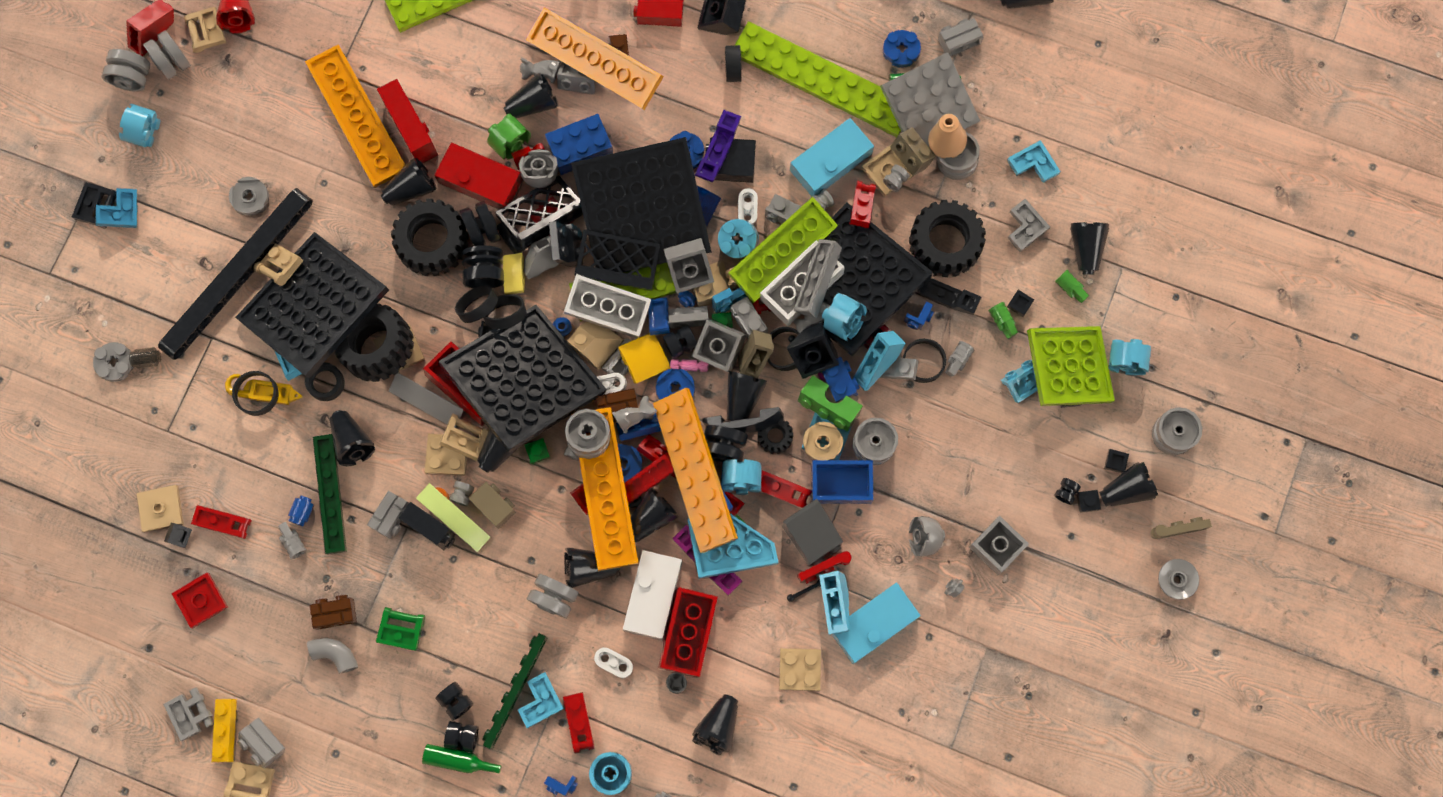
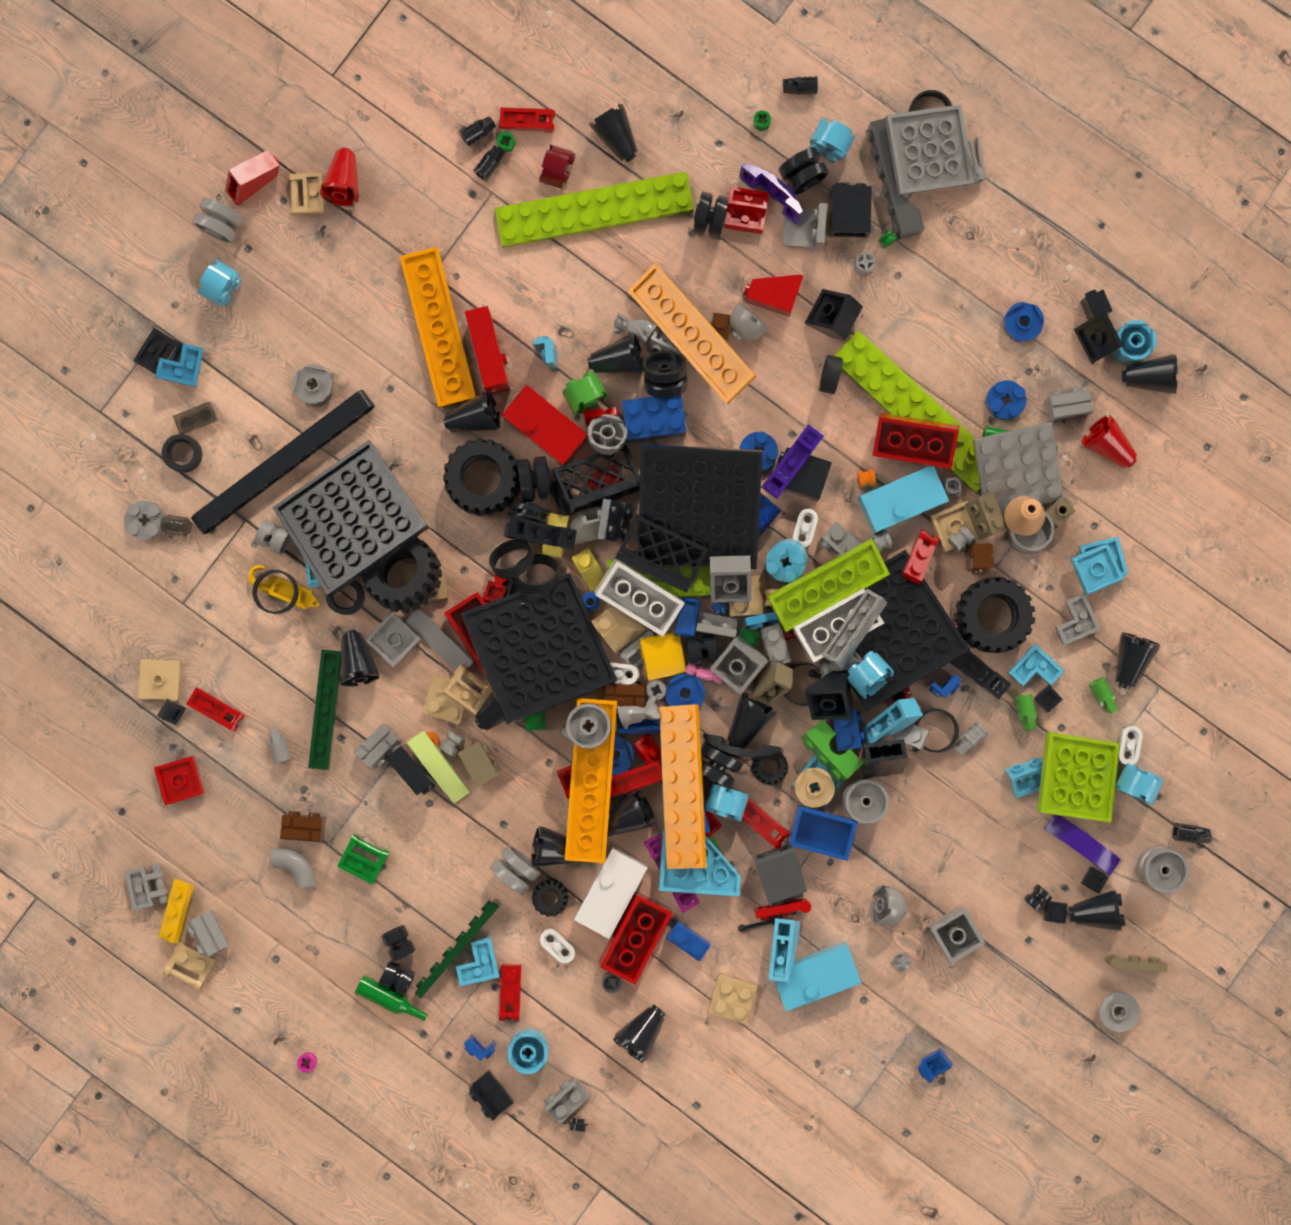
camera: 15 degrees right, 10 degrees up
(126, 280) = (167, 448): none -> black tyre
(142, 254) = (195, 418): none -> clear smoke plate
(166, 55) = (262, 215): light grey wheel -> none
(240, 343) = (271, 536): none -> light grey wheel
(283, 260) = (331, 461): tan plate -> none
(300, 510) = (294, 719): blue brick -> none
(380, 410) = (393, 639): none -> light grey plate
(461, 106) = (548, 350): none -> medium azure bracket
(469, 335) = (495, 590): none -> red plate
(498, 269) = (541, 533): none -> black slope
(552, 296) = (588, 568): none -> light yellow slope
(579, 100) = (665, 374): none -> black wheel
(585, 608) = (550, 910): none -> black tyre
(643, 39) = (746, 324): none -> light grey cylinder
(649, 386) = (656, 689): none -> light grey wheel
(740, 621) = (688, 940): none -> blue brick
(792, 149) = (866, 479): none -> orange wheel
(828, 100) = (916, 440): none -> red brick
(875, 131) = (956, 482): none -> light grey plate
(881, 394) = (883, 758): none -> black brick
(917, 190) = (979, 558): none -> reddish brown brick
(981, 130) = (1060, 511): none -> dark tan brick
(997, 273) = (1033, 662): none -> medium azure plate
(1008, 59) = (1110, 442): none -> red cone
(1015, 679) = (934, 1064): none -> blue bracket
(1029, 173) = (1096, 569): none -> medium azure tile
(1095, 428) = (1082, 843): none -> dark purple slope
(1110, 327) = (1130, 745): none -> white plate
(1193, 392) = (1191, 833): none -> black hinge

